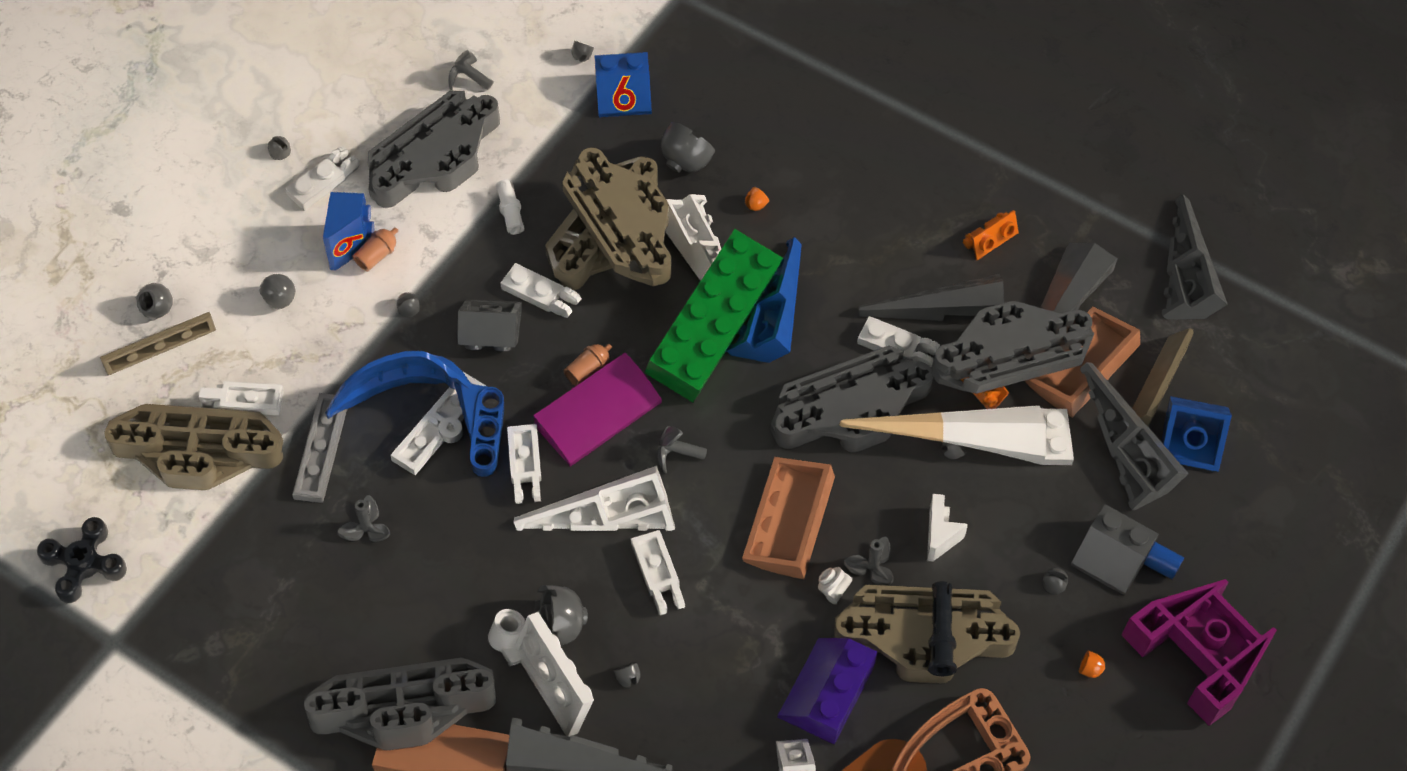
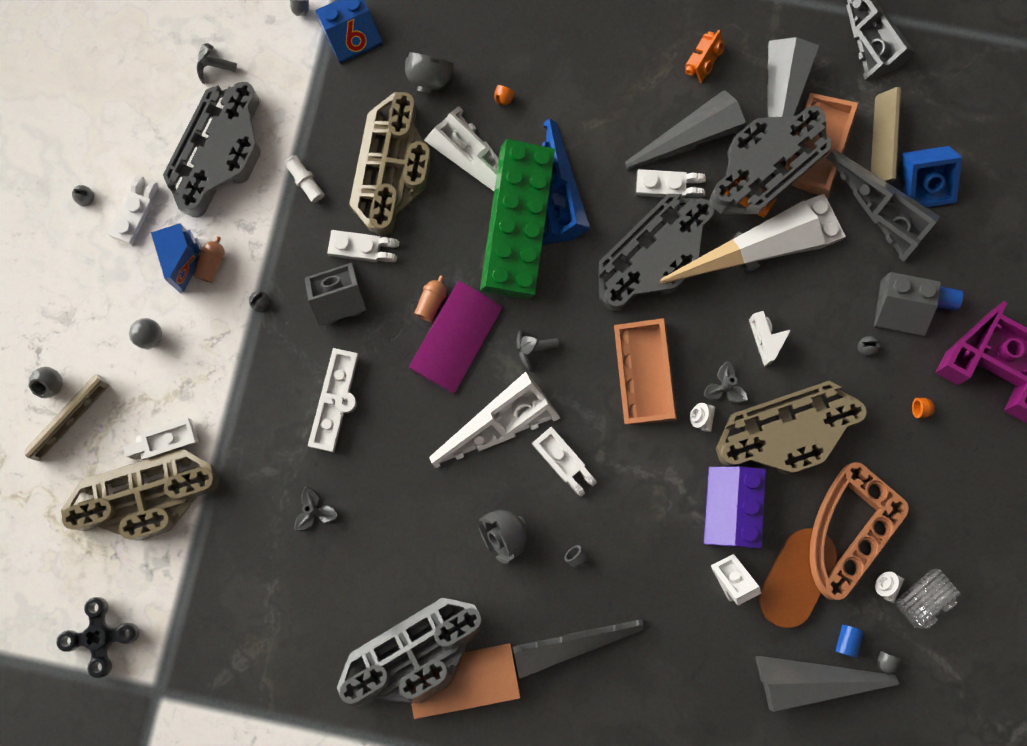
camera: 20 degrees left, 20 degrees up
(319, 452) = (246, 458): light grey tile -> none
(431, 369) = (351, 374): blue piece -> none
(524, 459) = (416, 405): white hinge -> none
(546, 664) = (514, 581): white hinge -> none
(629, 212) = (409, 157): dark tan connector -> none
(942, 641) = (812, 441): black pin -> none

